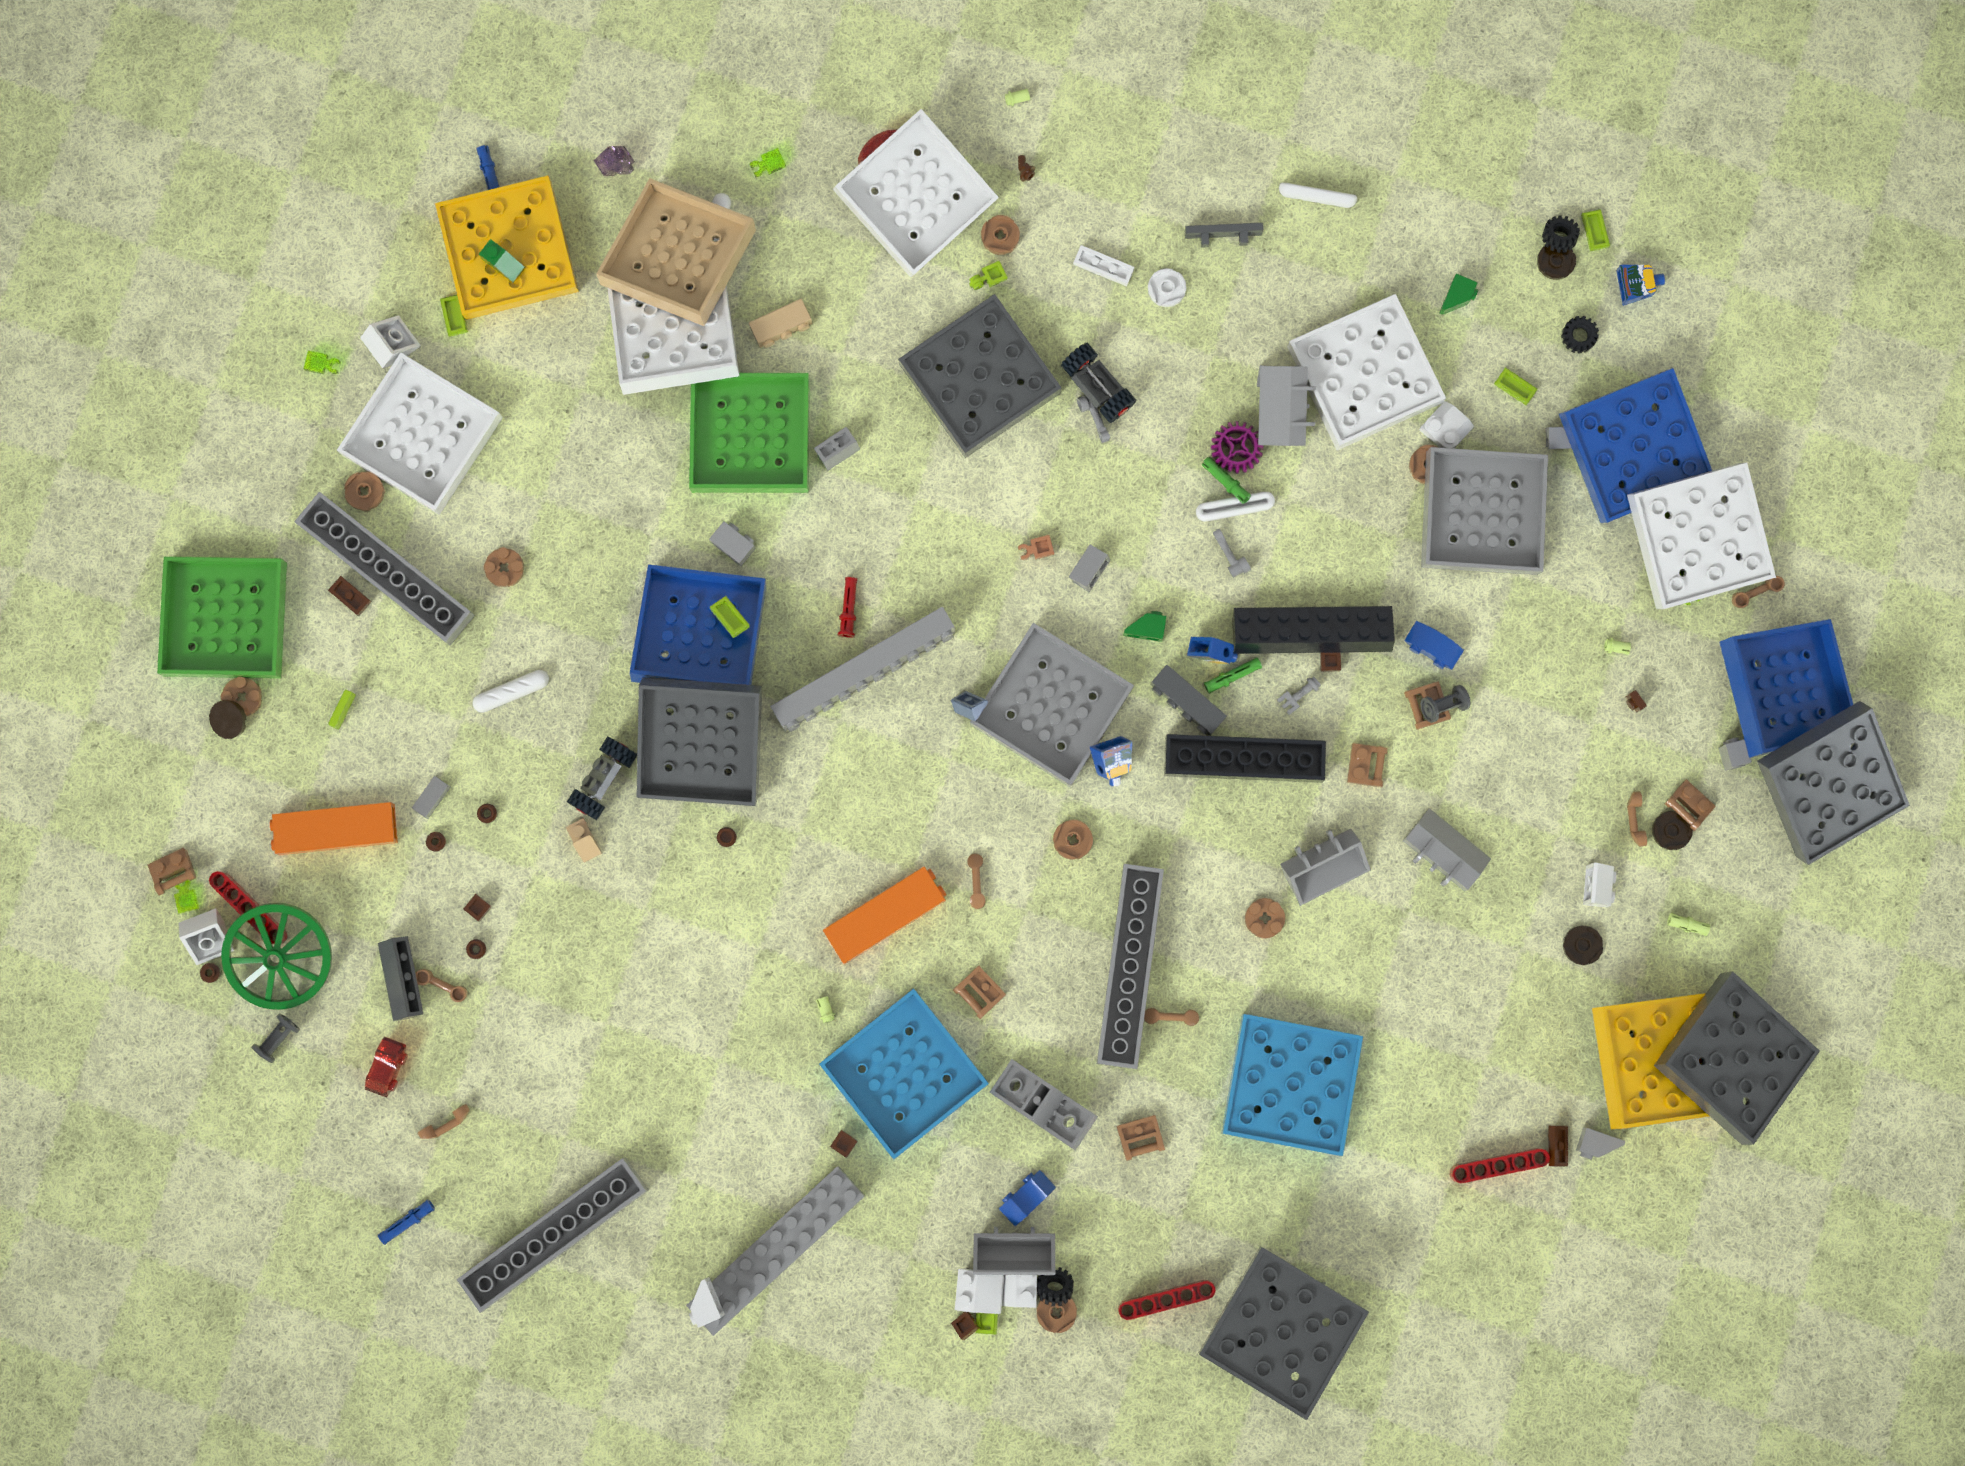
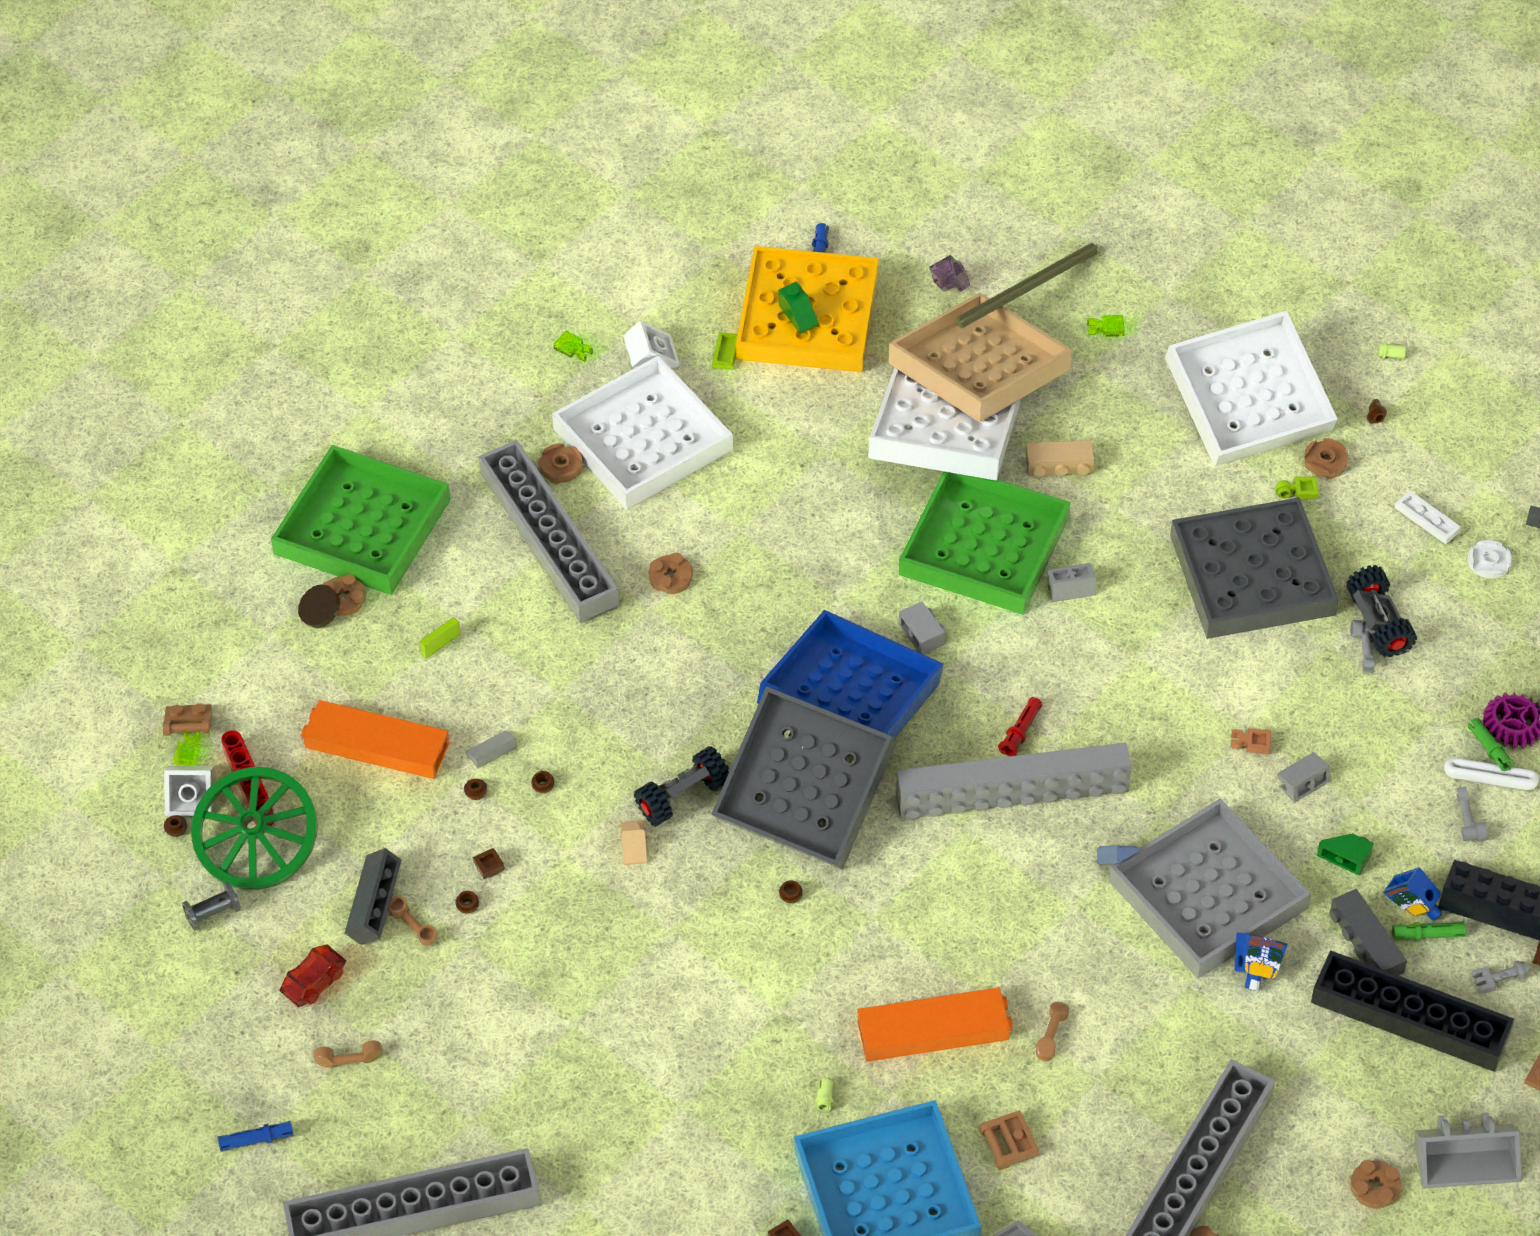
camera: 20 degrees right, 30 degrees down
(349, 596) = (499, 545): reddish brown plate -> none
(510, 691) = (623, 682): white piece -> none
(686, 154) = (1026, 285): none -> olive axle
(729, 616) = (890, 677): lime tile -> none
(1078, 849) = (1180, 1039): medium nougat plate -> none

